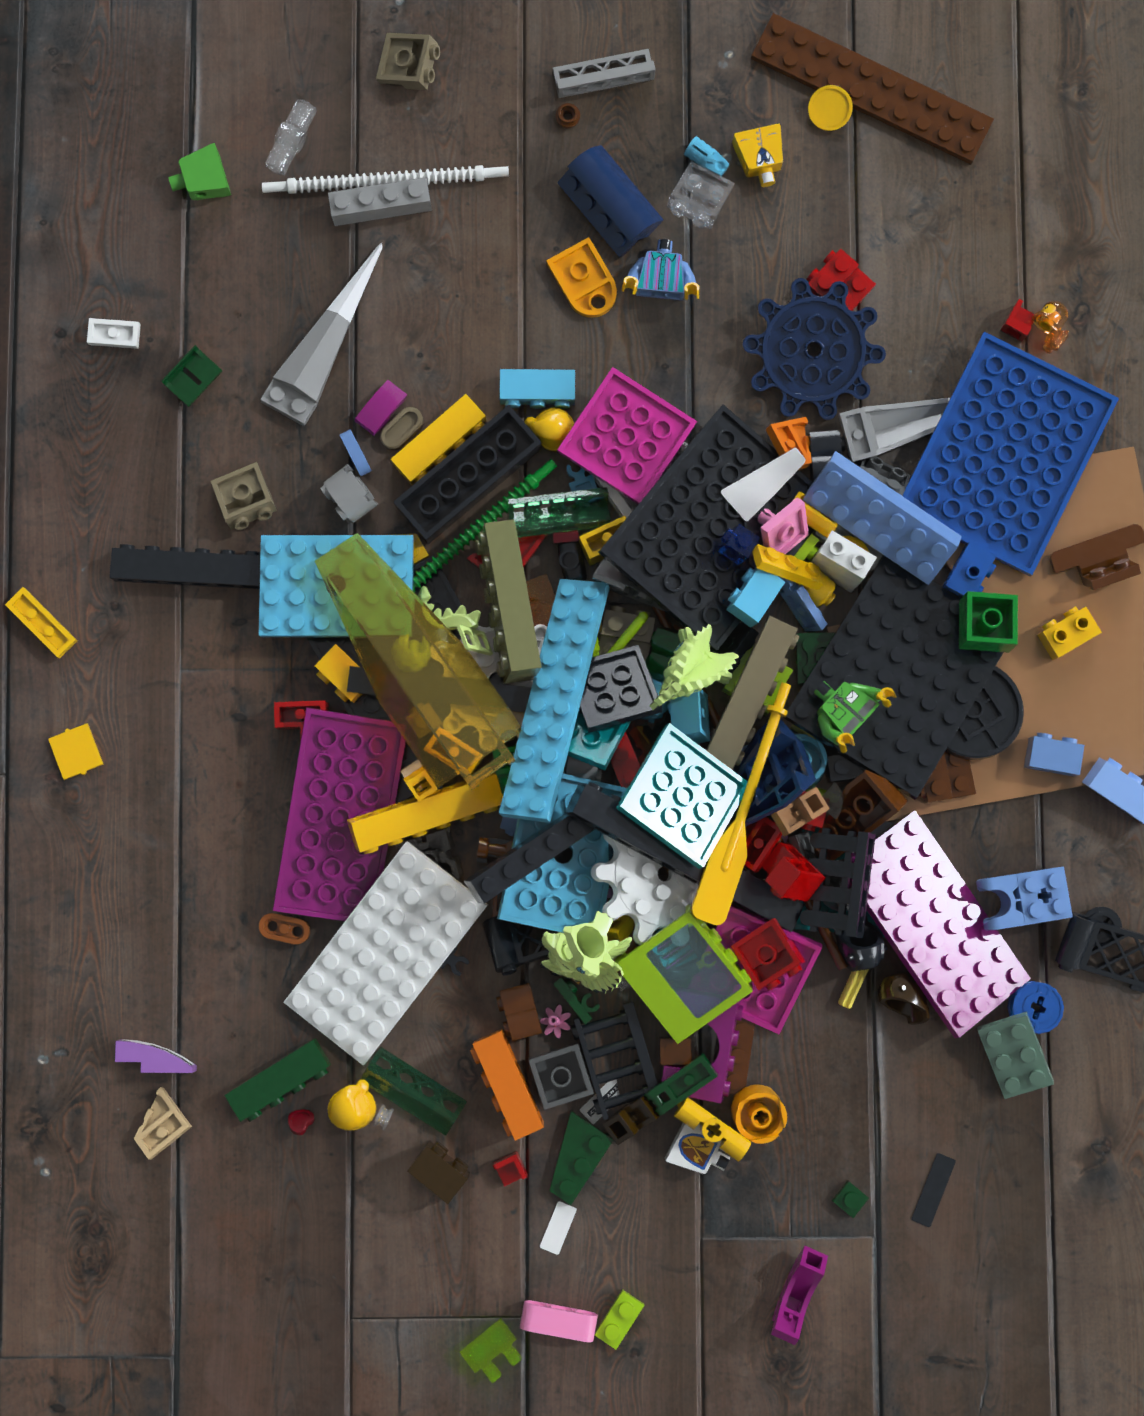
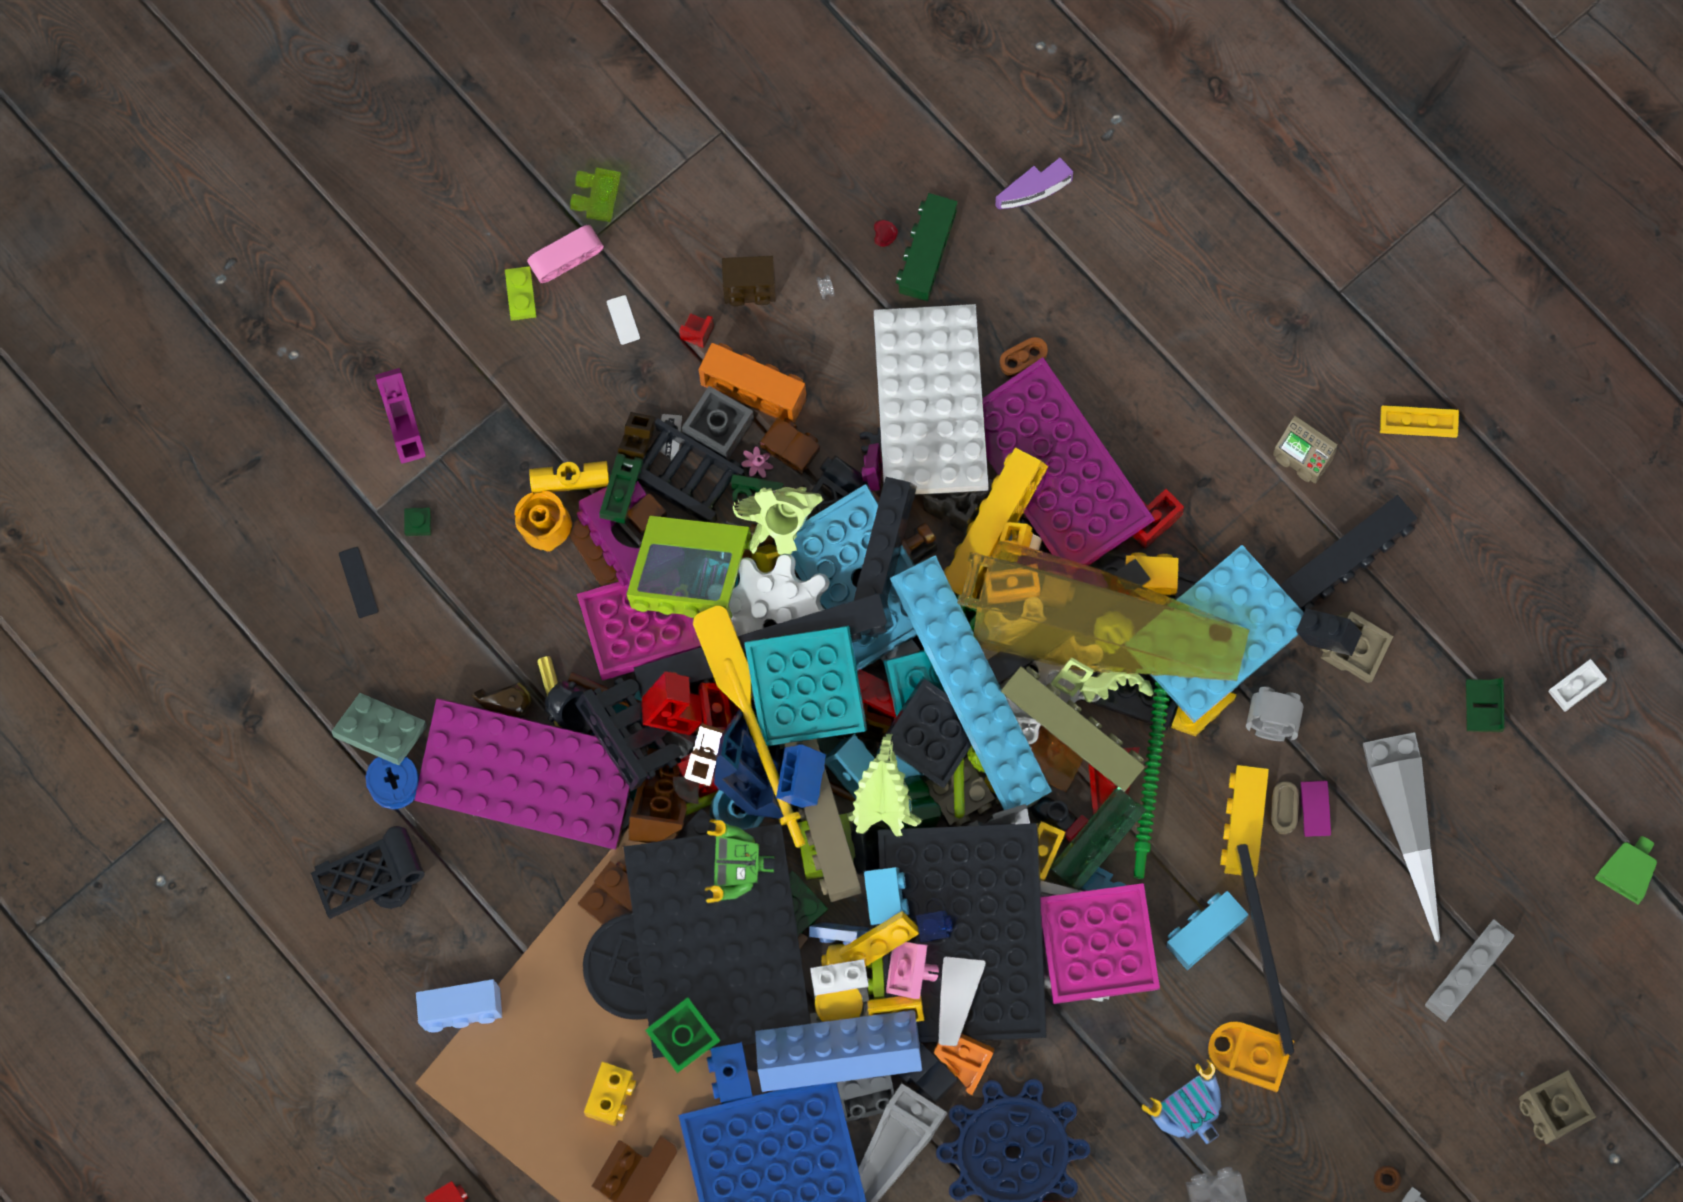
camera: 145 degrees right, 10 degrees down
(75, 751) = (1302, 352): yellow piece -> none
(145, 670) = (1305, 450): none -> dark tan slope
(161, 1125) = (984, 145): tan wing -> none
(256, 514) = (1329, 632): none -> black brick
(290, 137) = (1590, 962): clear piece -> none
(293, 185) = (1414, 1066): white hose -> none
(352, 1106) = (855, 274): yellow piece -> none
(355, 453) = (1302, 755): medium blue beam -> none
(410, 1095) = (823, 315): clear green fence -> none
(468, 474) = (1197, 811): black brick -> none
(479, 932) = (873, 467): none -> magenta plate
(512, 332) = (1264, 950): none -> black tile
(550, 427) = (1168, 907): yellow piece -> none
(579, 1155) = (652, 380): dark green wing -> none
(609, 199) = (1287, 1135): dark blue brick -> none
(695, 1152) = (568, 448): torso -> none
(747, 722) = (801, 776): none -> blue brick
(768, 955) = (636, 632): red plate -> none
(1020, 898) = (470, 844): medium blue brick -> none
(1054, 755) = (540, 985): medium blue brick -> none

